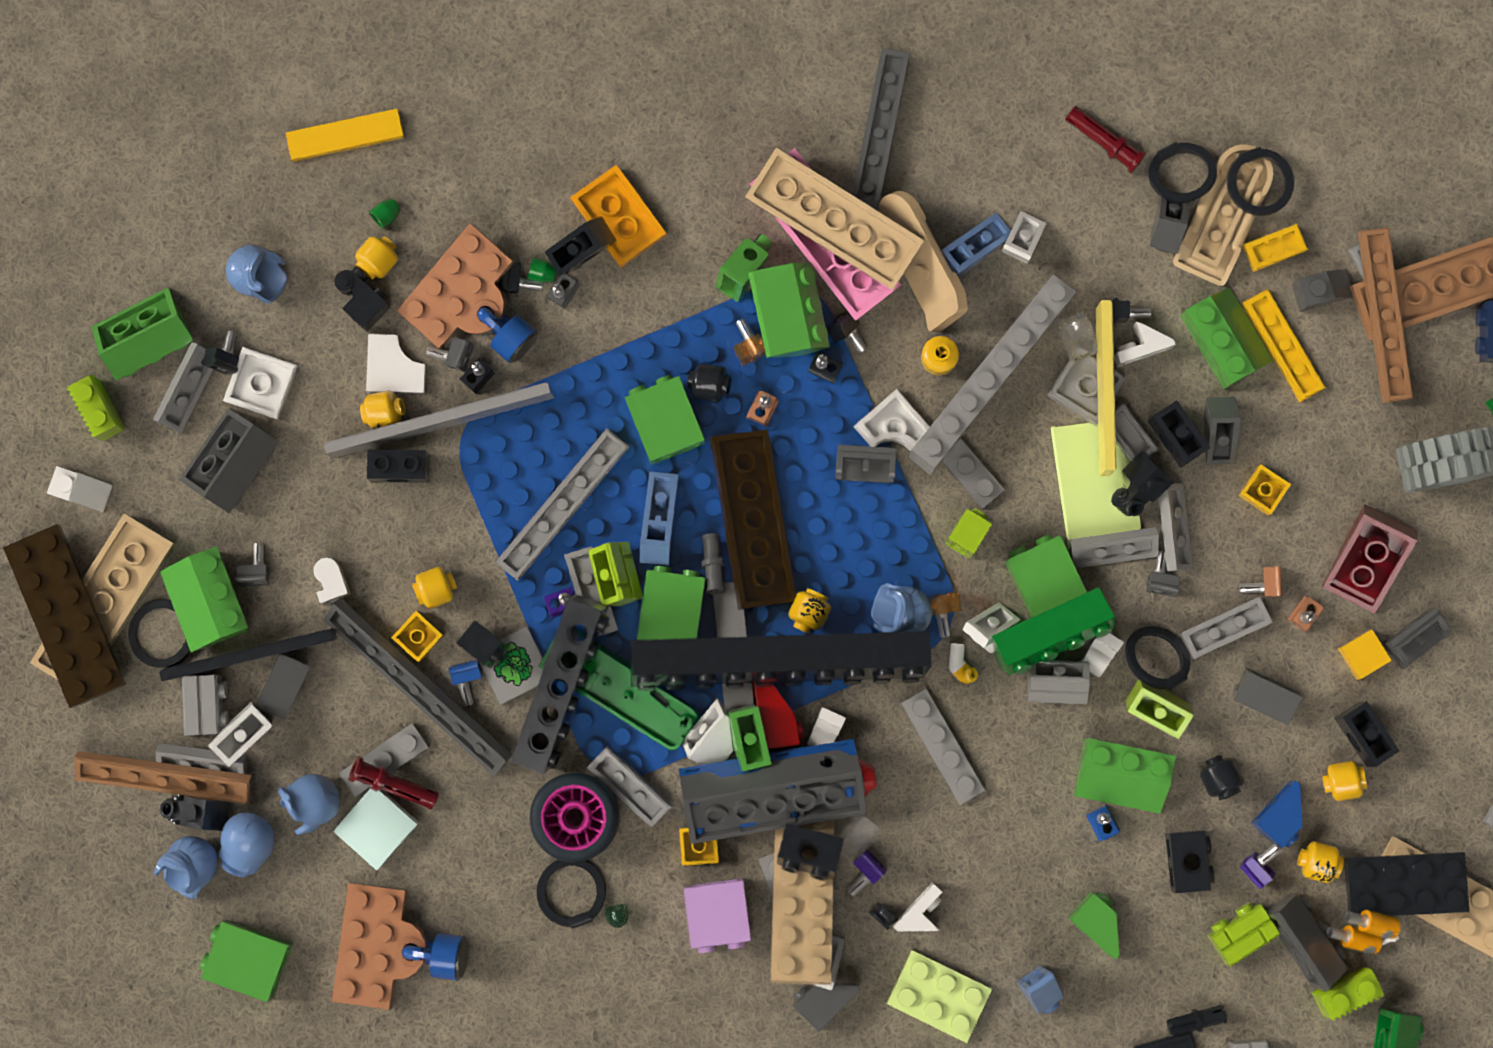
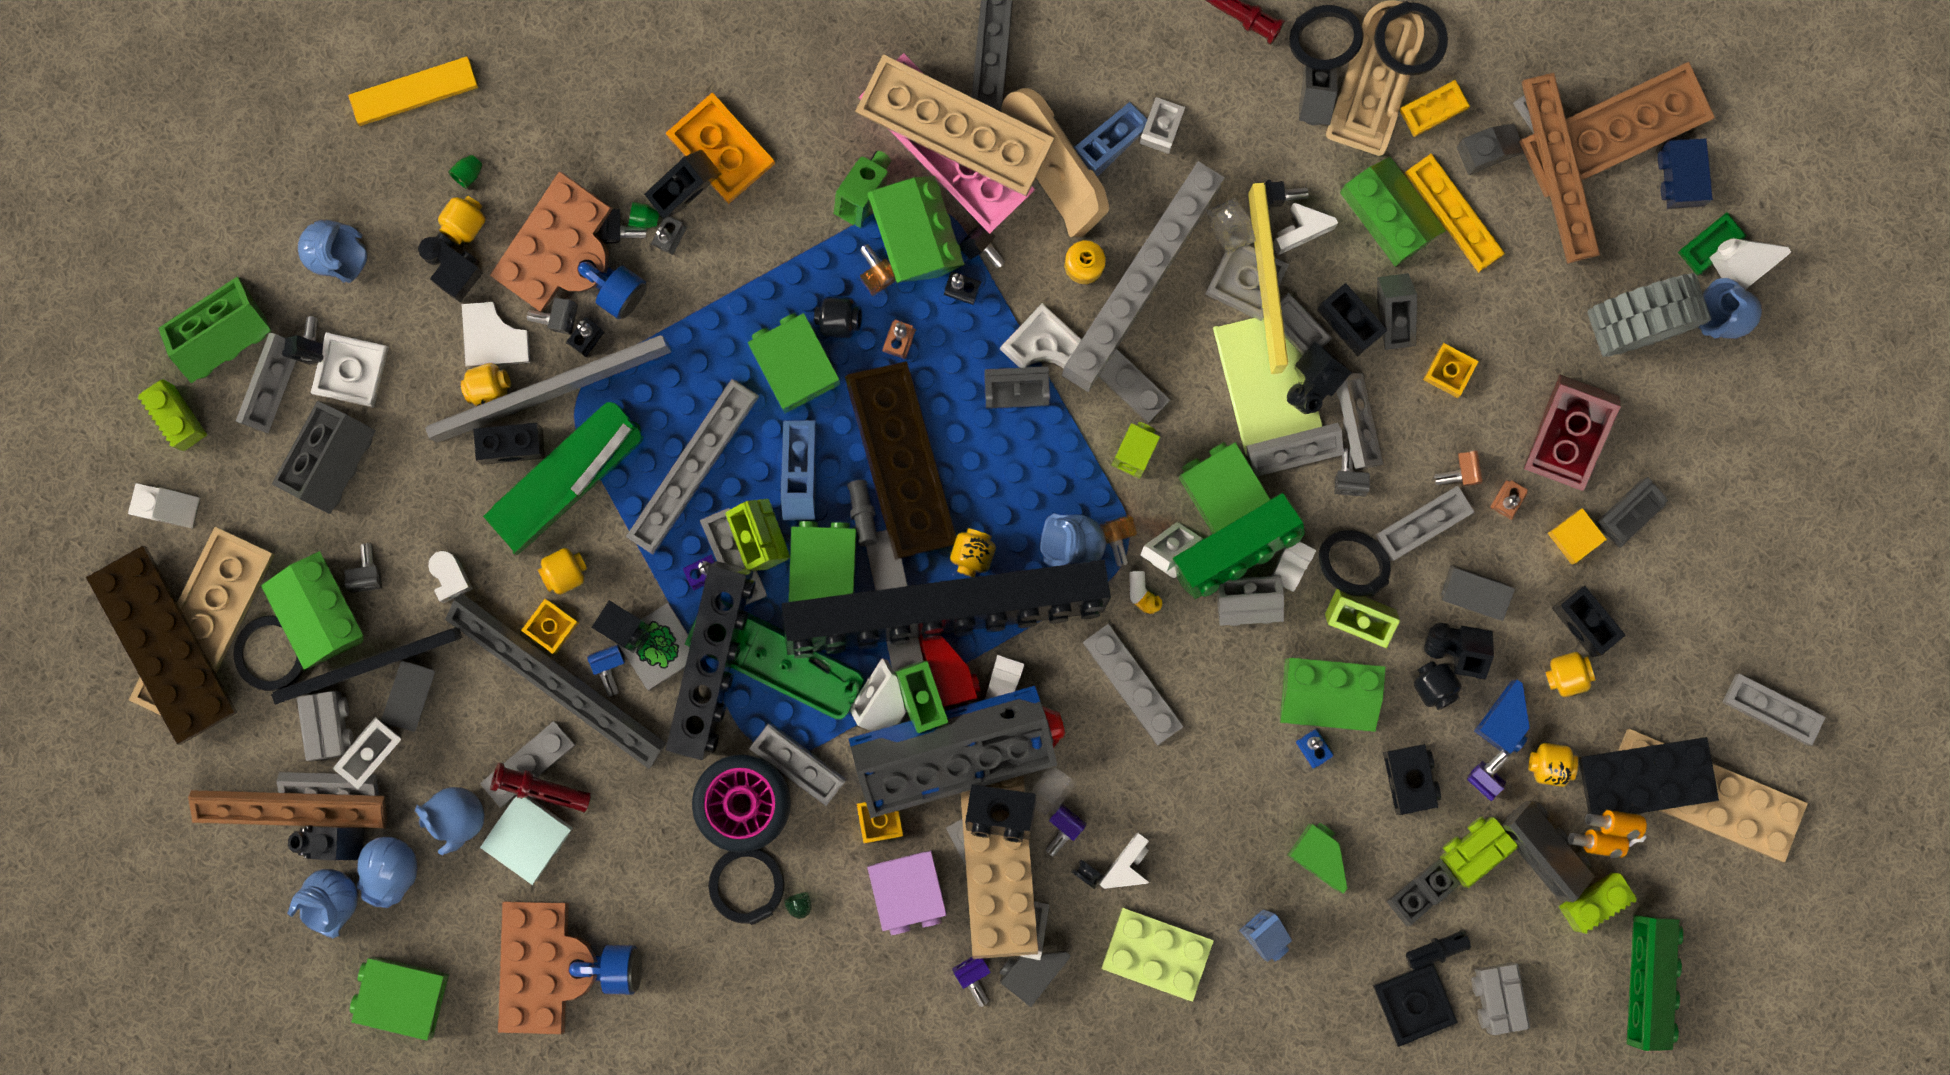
camera: 10 degrees left, 0 degrees up
(445, 501) = (564, 476): none -> green piece
(765, 995) = (968, 975): none -> dark purple piece
(1188, 966) = (1423, 892): none -> dark grey slope
(1255, 746) = (1468, 645): none -> black brick

